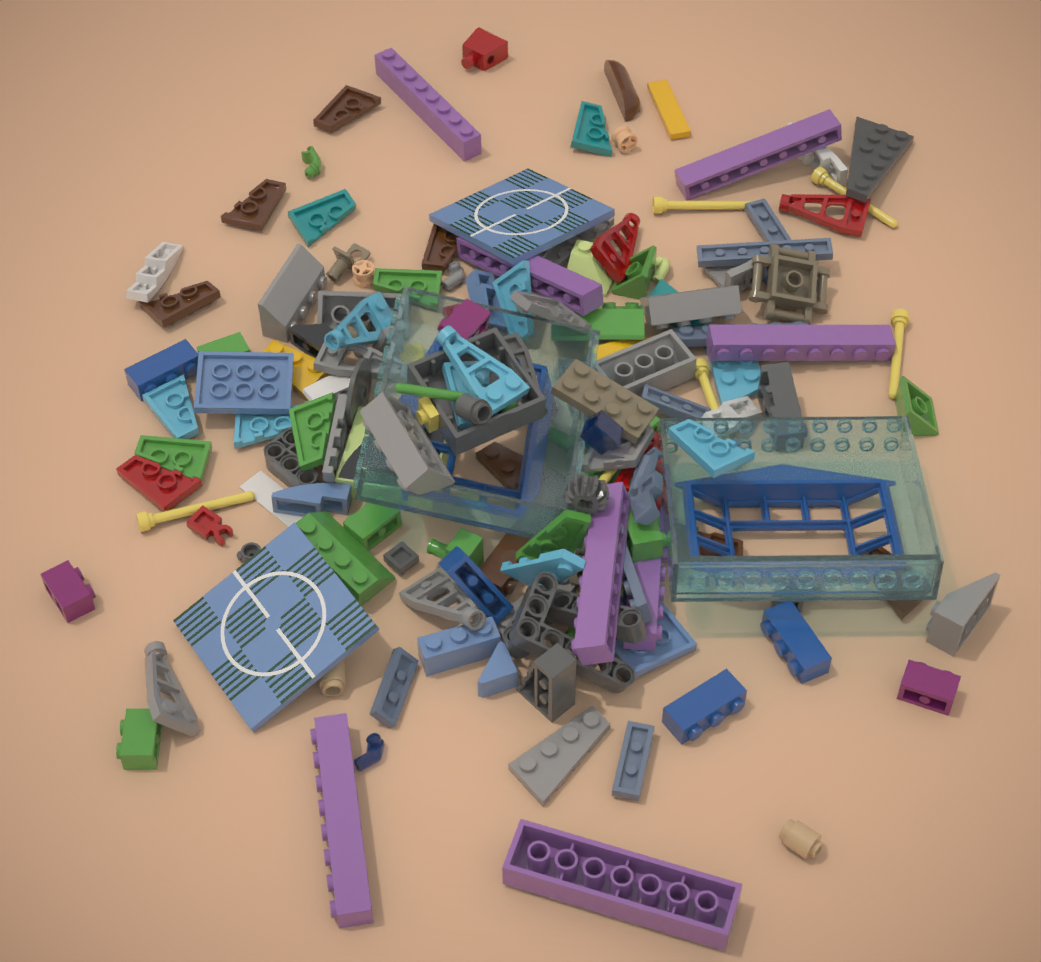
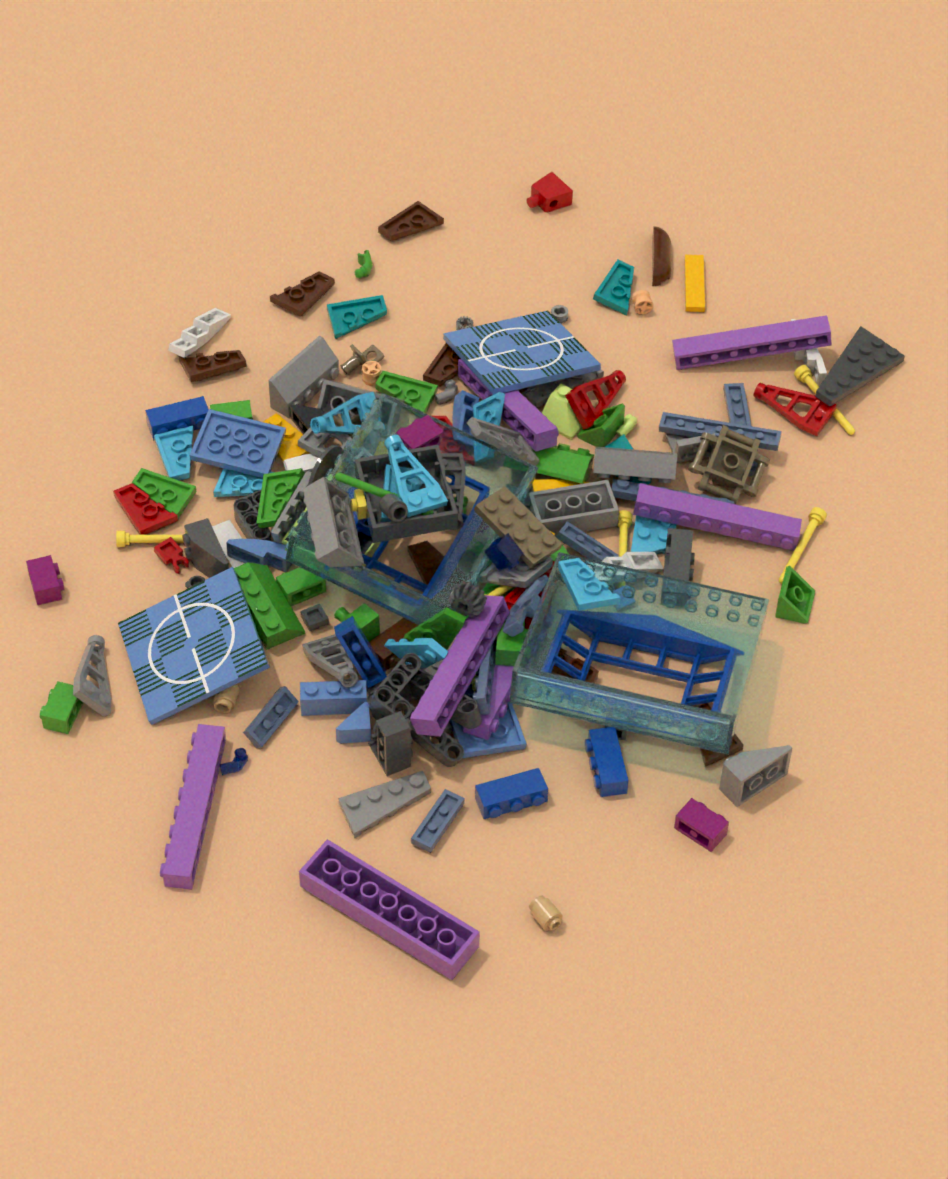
camera: 15 degrees right, 0 degrees up
(250, 511) = (204, 548): none -> dark grey slope
(428, 104) = (482, 233): medium lavender brick -> none
(449, 199) = (464, 320): none -> light grey bush
(545, 165) = (562, 311): none -> light grey bush
(661, 205) = (650, 369): light yellow piece -> none

